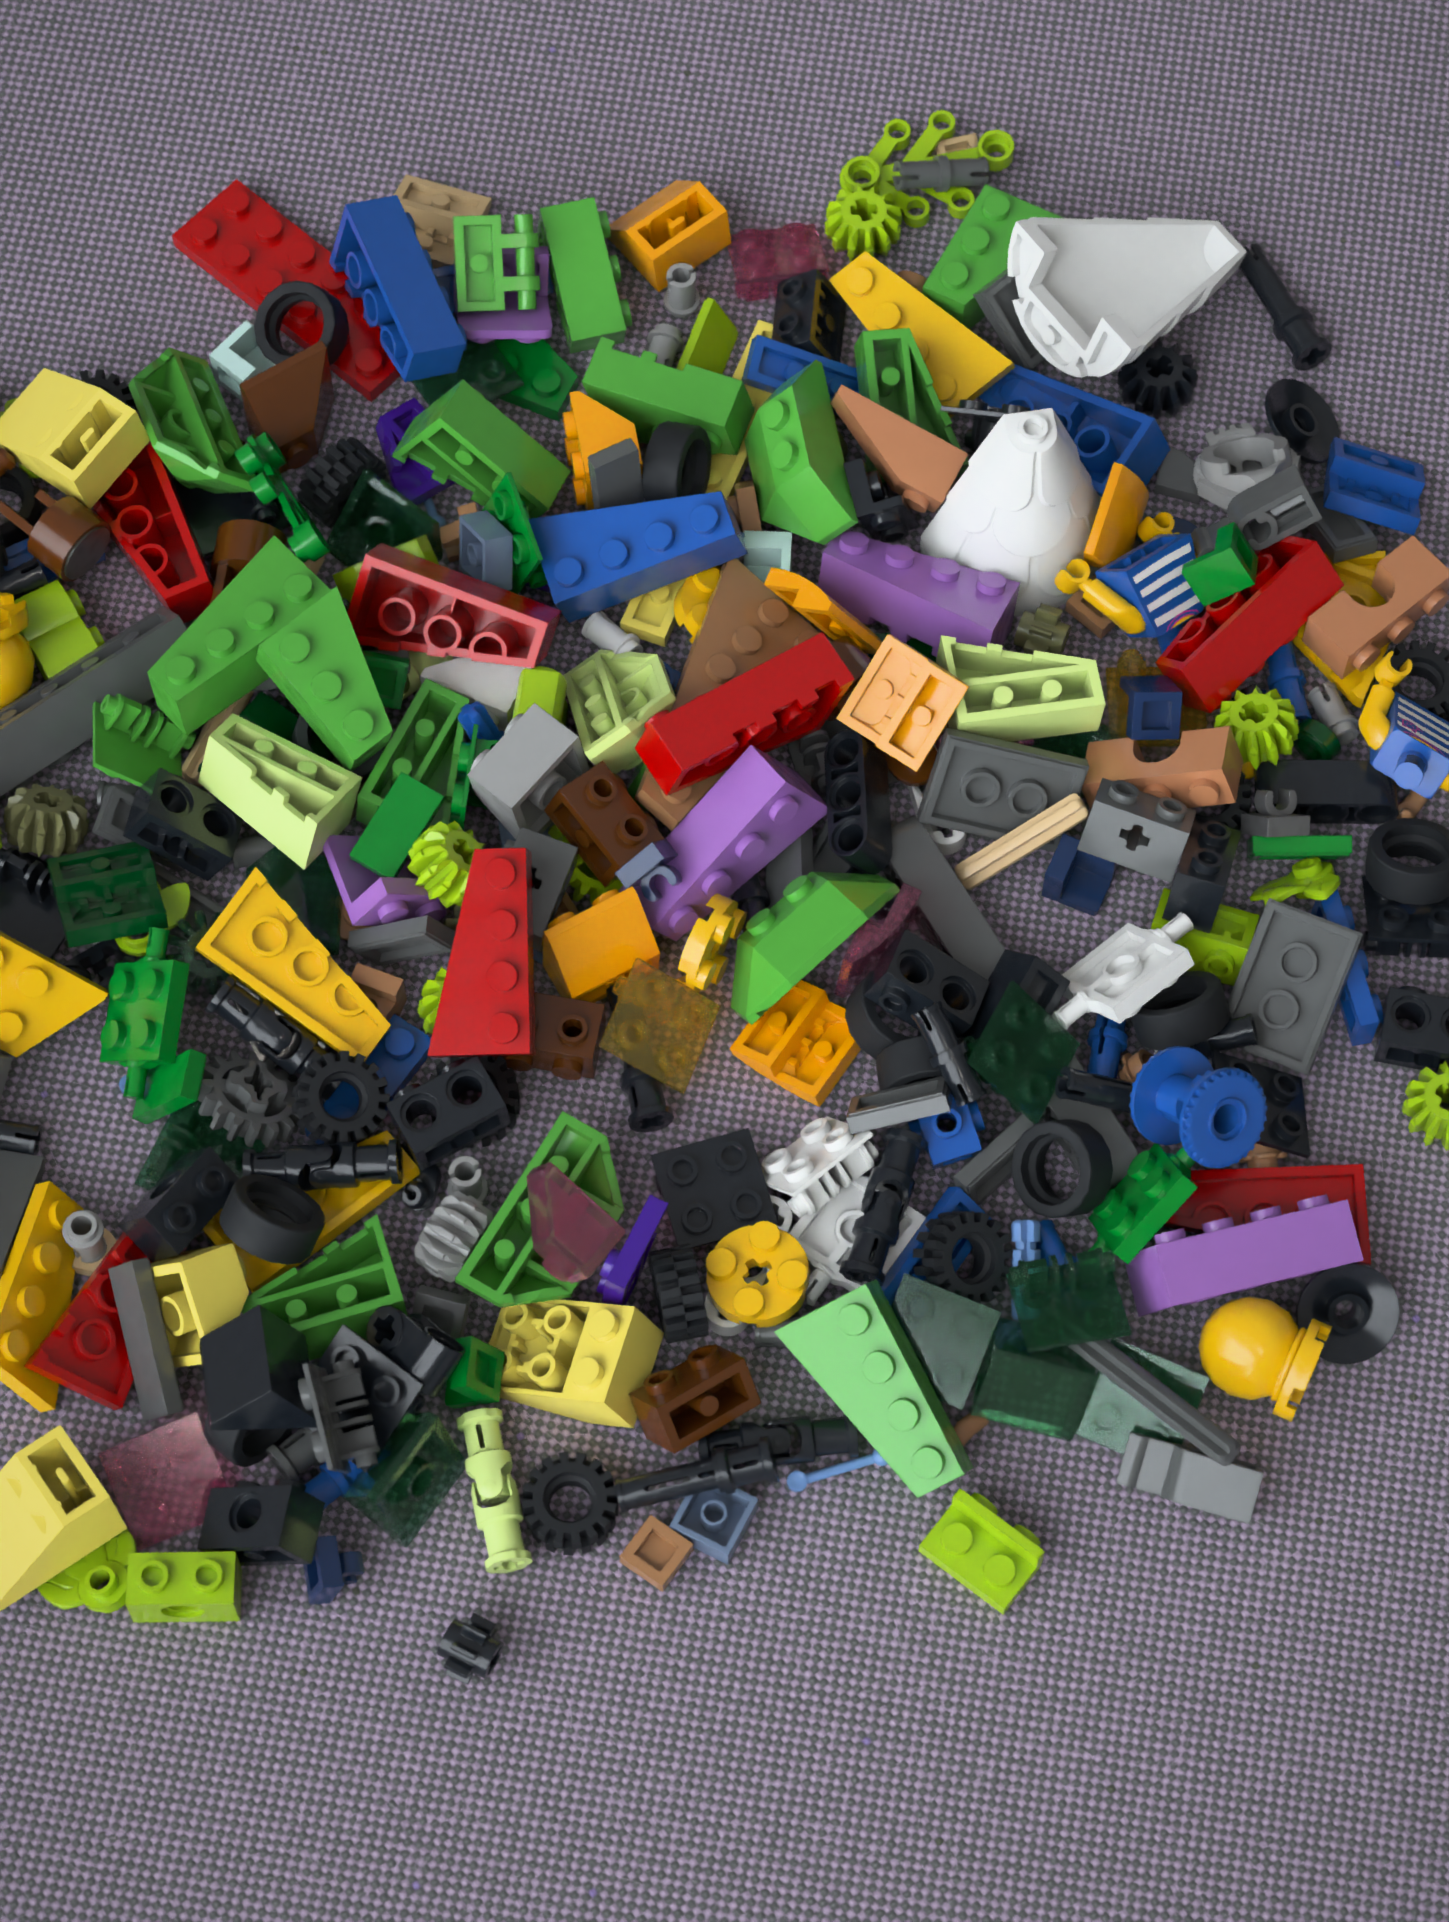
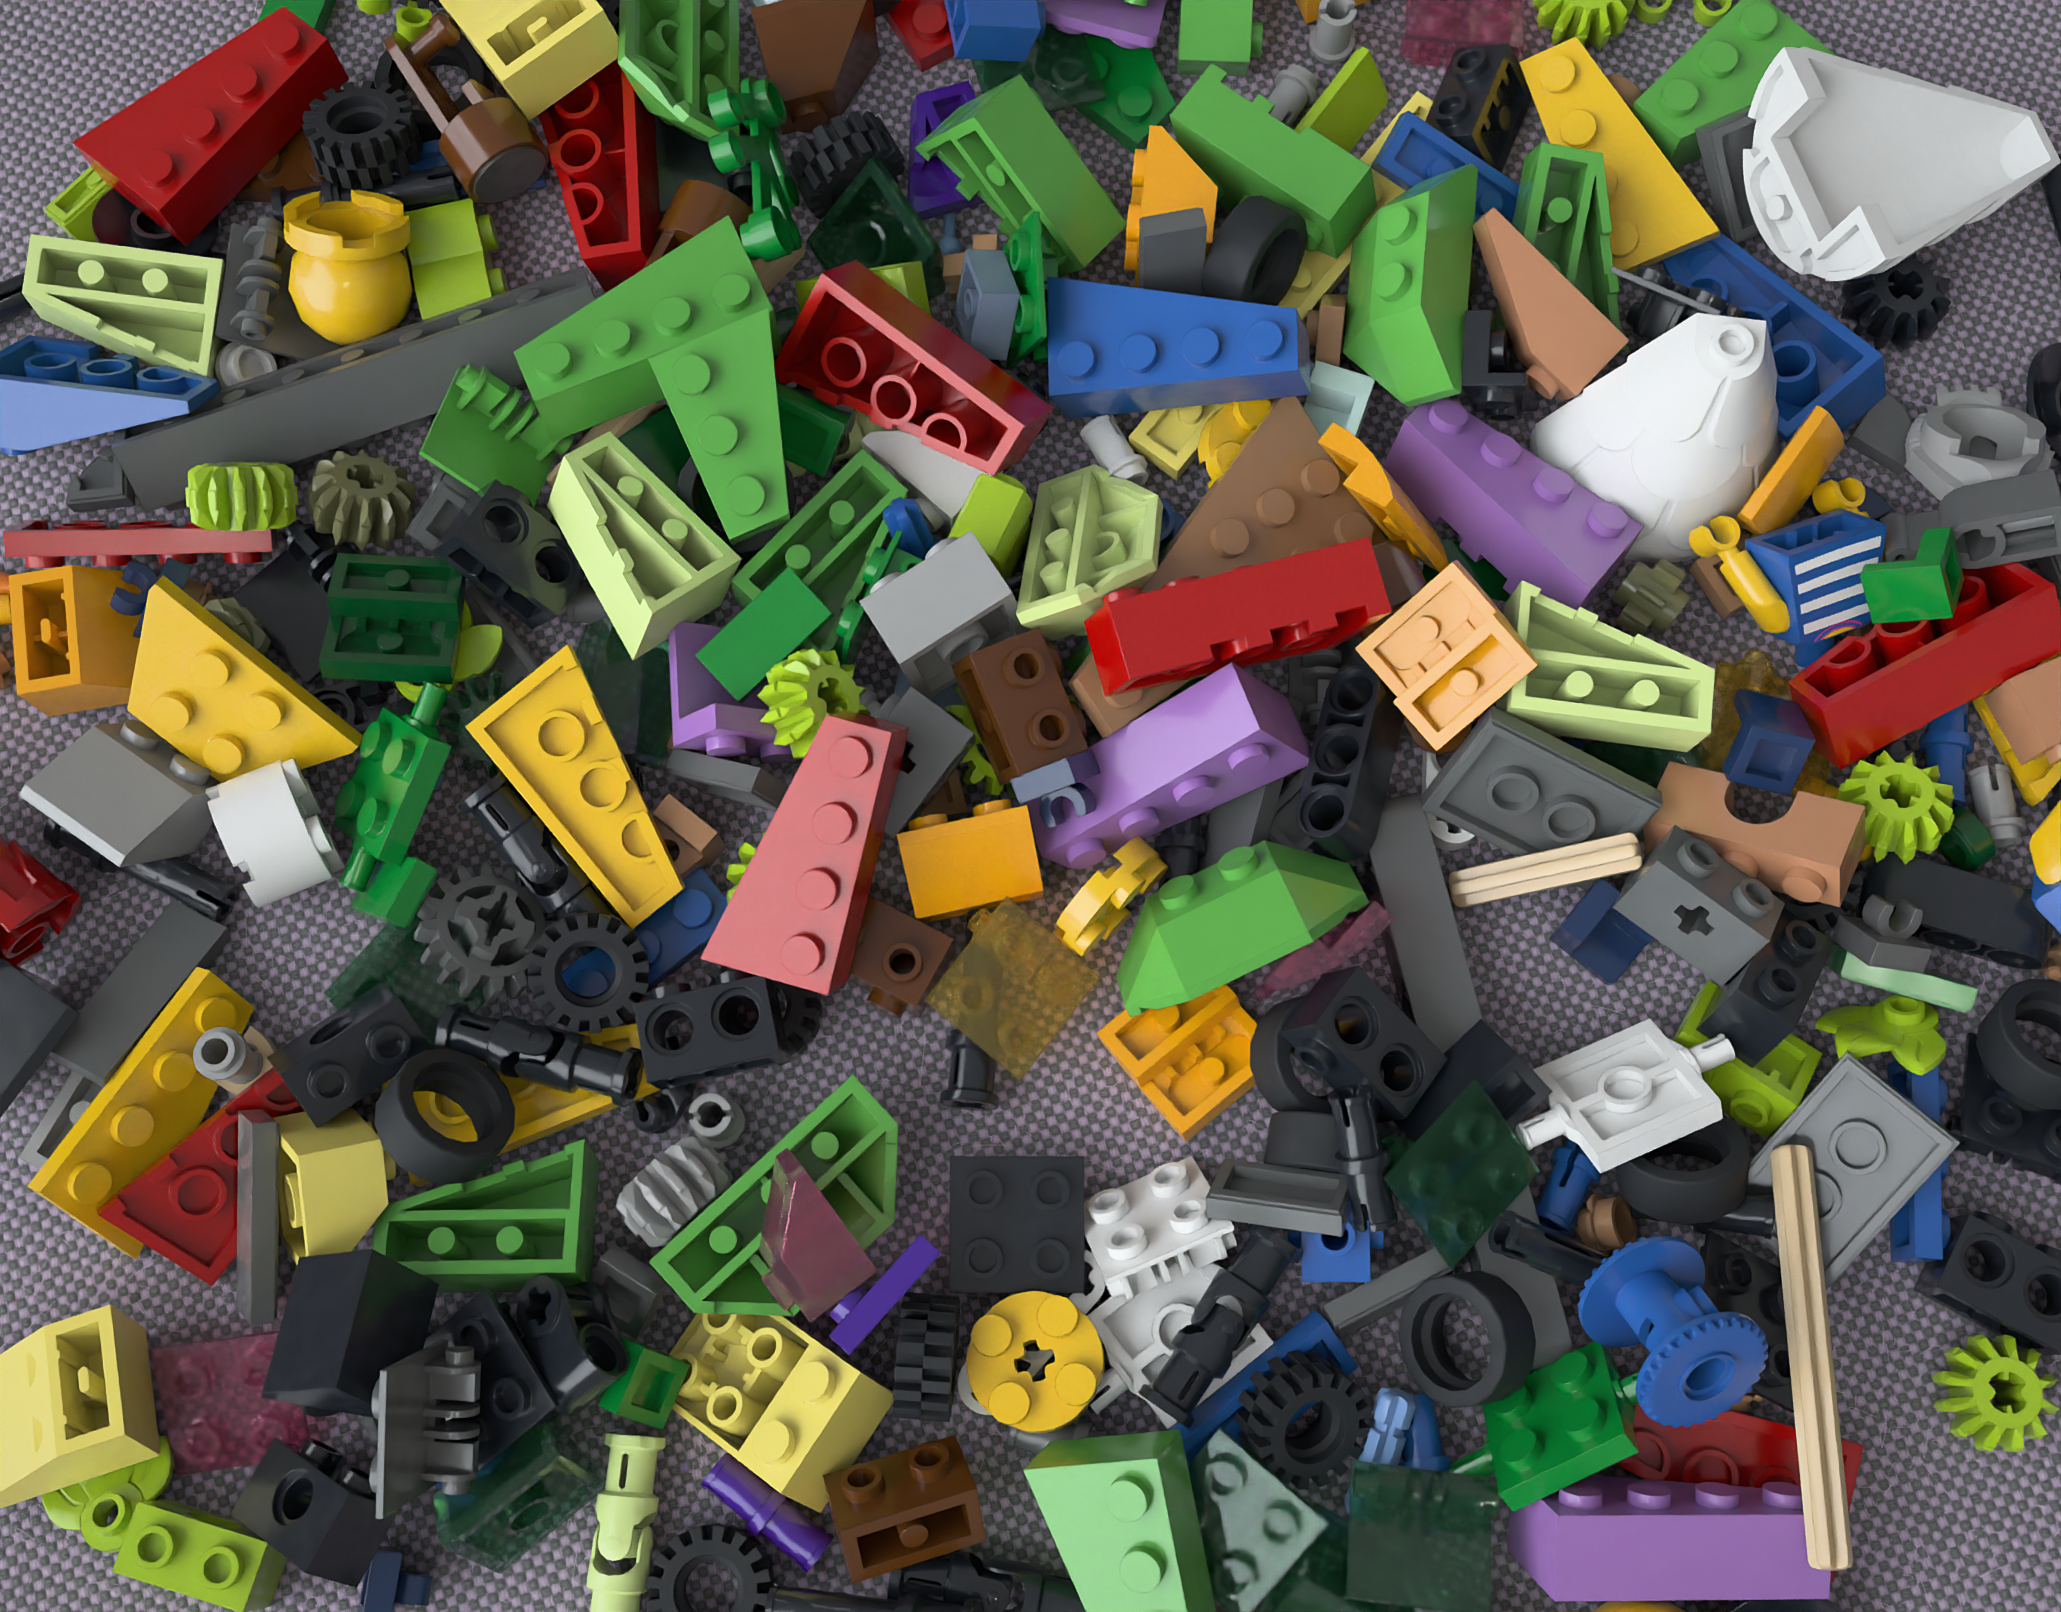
camera: 20 degrees right, 10 degrees up
(64, 1071) = (274, 831): none -> white brick
(593, 1439) = (767, 1511): none -> dark purple pin
(1301, 1102) = (1811, 1360): none -> tan axle

